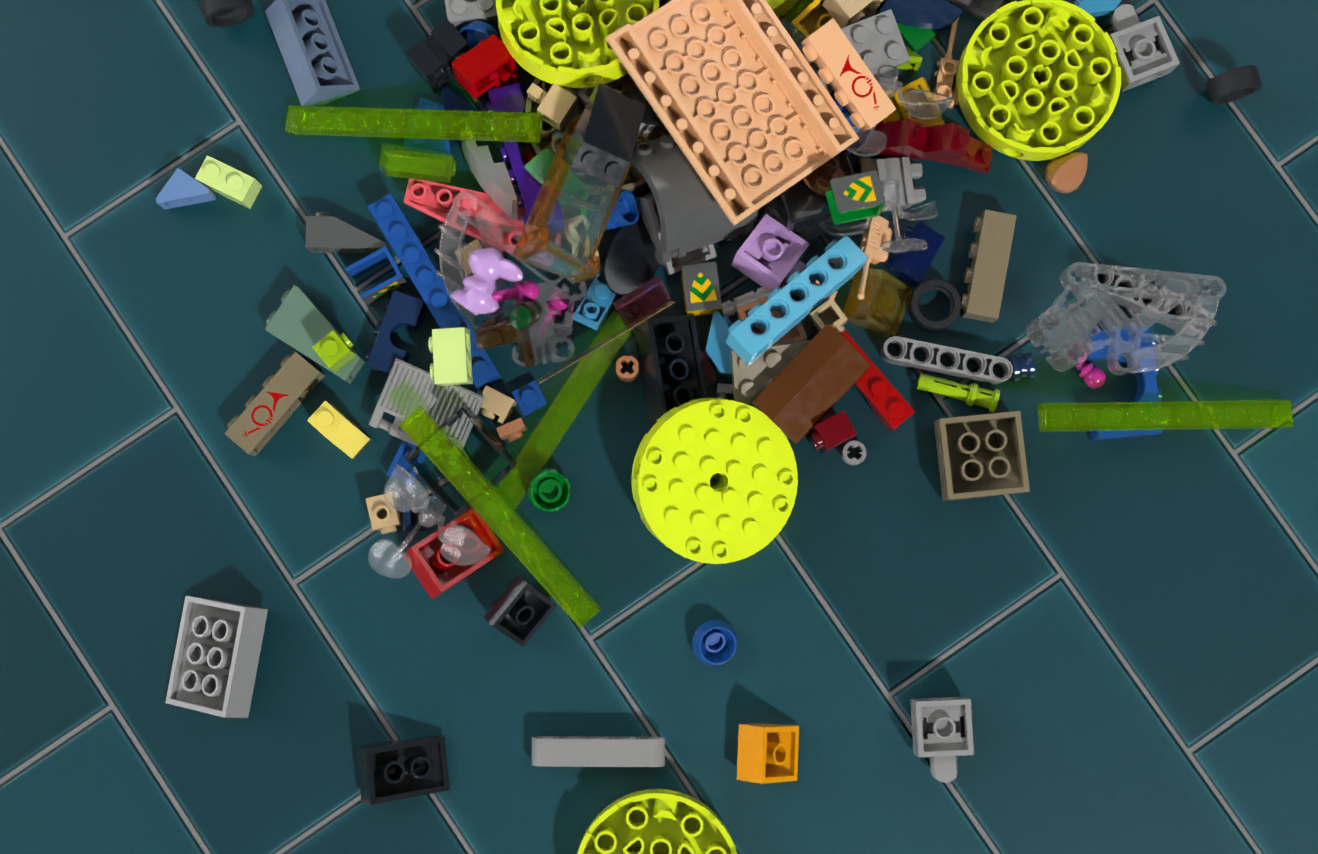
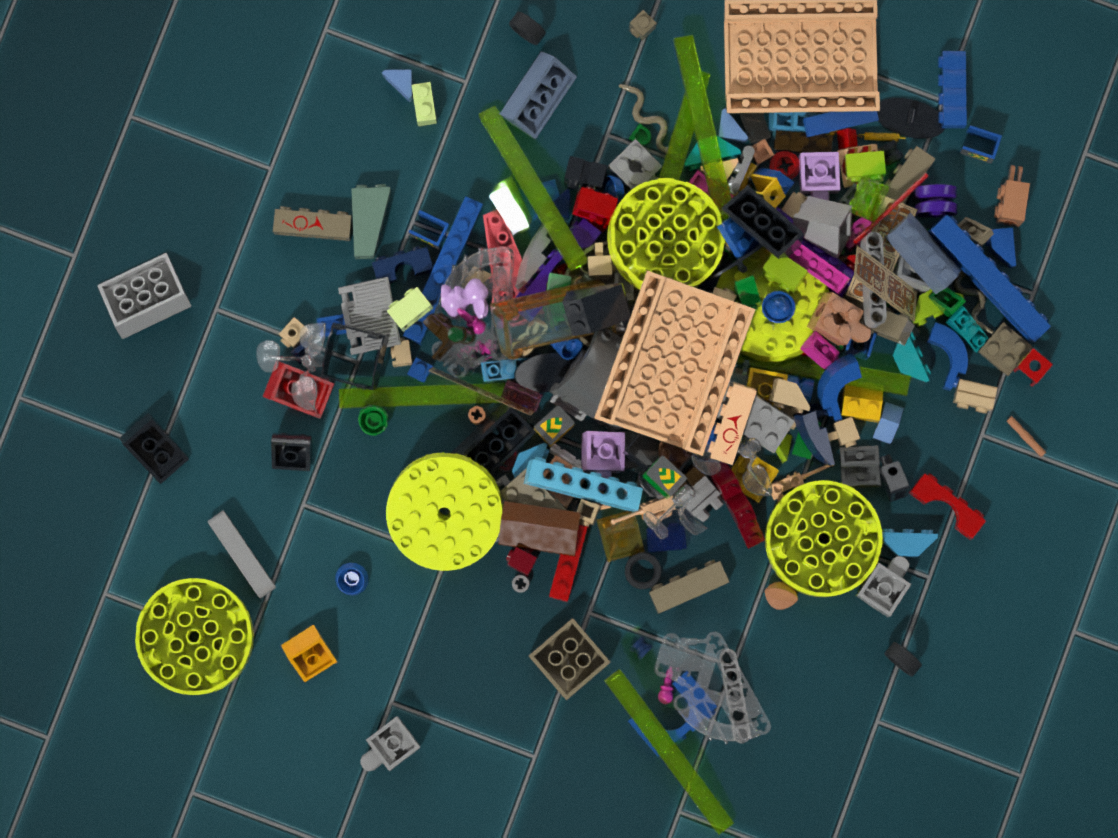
camera: 55 degrees right, 0 degrees up
(333, 235) = (435, 187): dark grey slope -> none
(335, 350) = (367, 239): lime brick -> none
(338, 429) = (323, 272): light yellow slope -> none
(500, 516) = (337, 402): clear neon green plate -> none
(512, 430) = (393, 373): nougat plate -> none
(958, 356) = (613, 590): light grey beam -> none
(970, 394) = (603, 629): lime pin -> none

